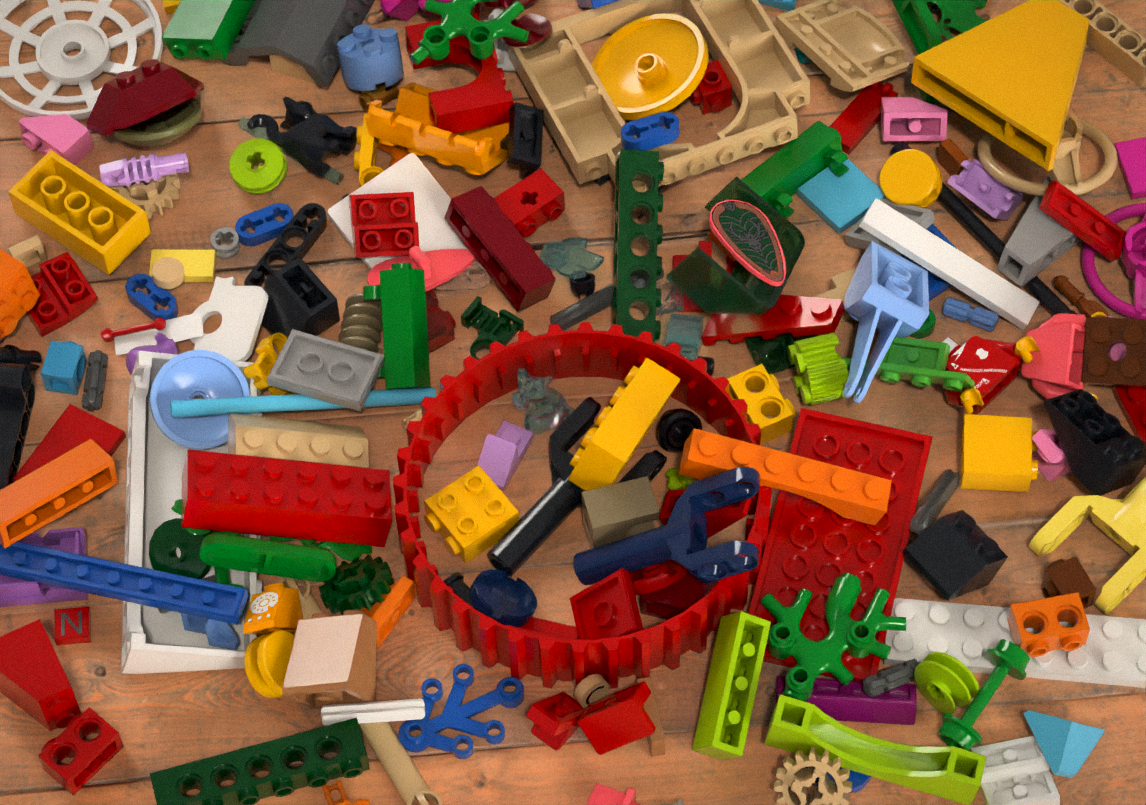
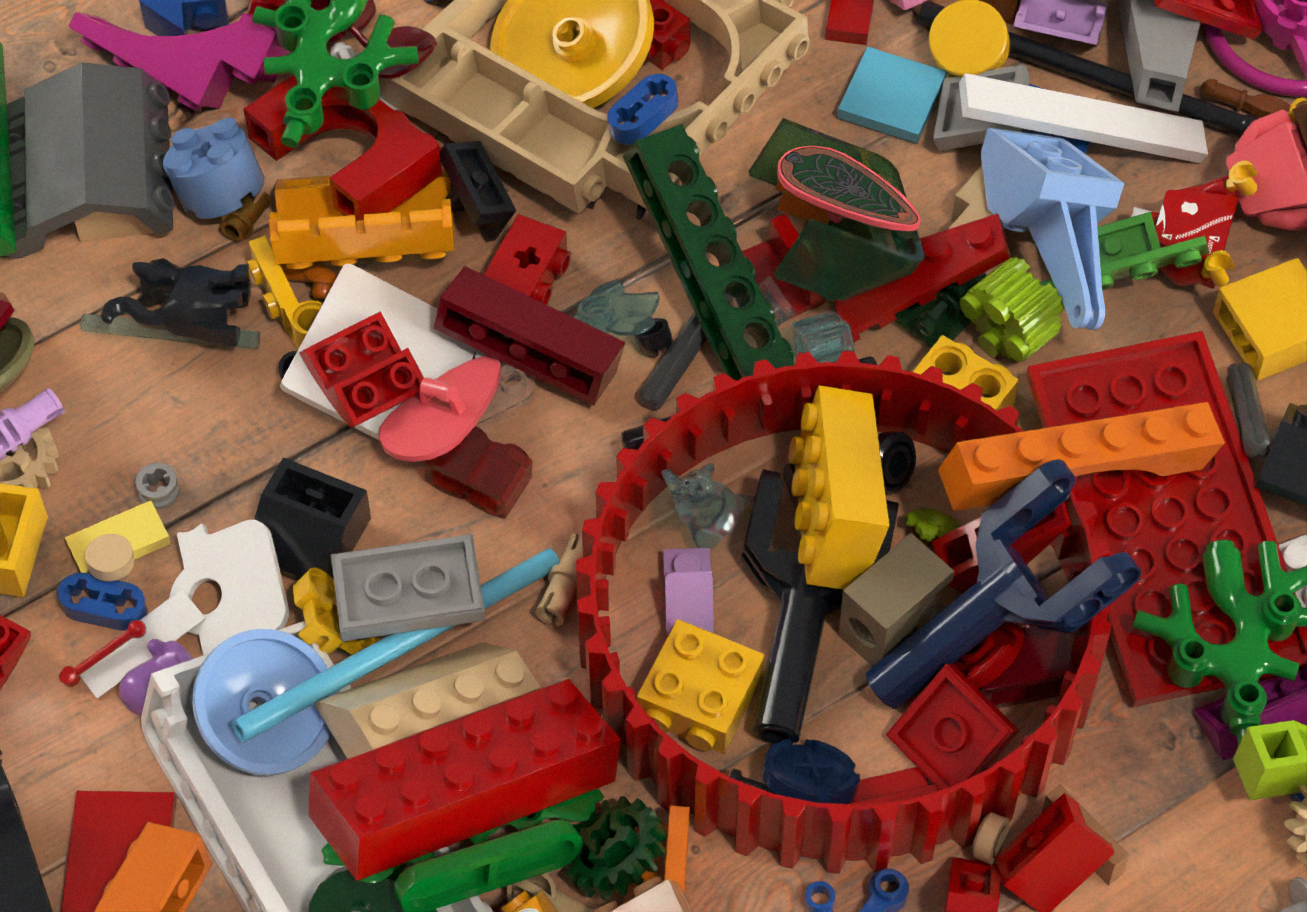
camera: 30 degrees left, 0 degrees up
(64, 367) = (40, 745): dark azure brick -> none
(94, 380) = (91, 744): dark grey axle -> none
(251, 154) = (123, 372): lime piece -> none
(263, 224) = (199, 442): blue beam -> none
(284, 252) = (246, 463): black beam -> none
(361, 323) = (408, 505): dark tan piece -> none
(403, 326) = (476, 485): green brick -> none
(490, 326) = (580, 443): dark green piece -> none
(731, 686) = (1167, 747): lime brick -> none
(796, 164) = (826, 74): green brick -> none
(978, 317) = (1143, 169): medium blue piece -> none

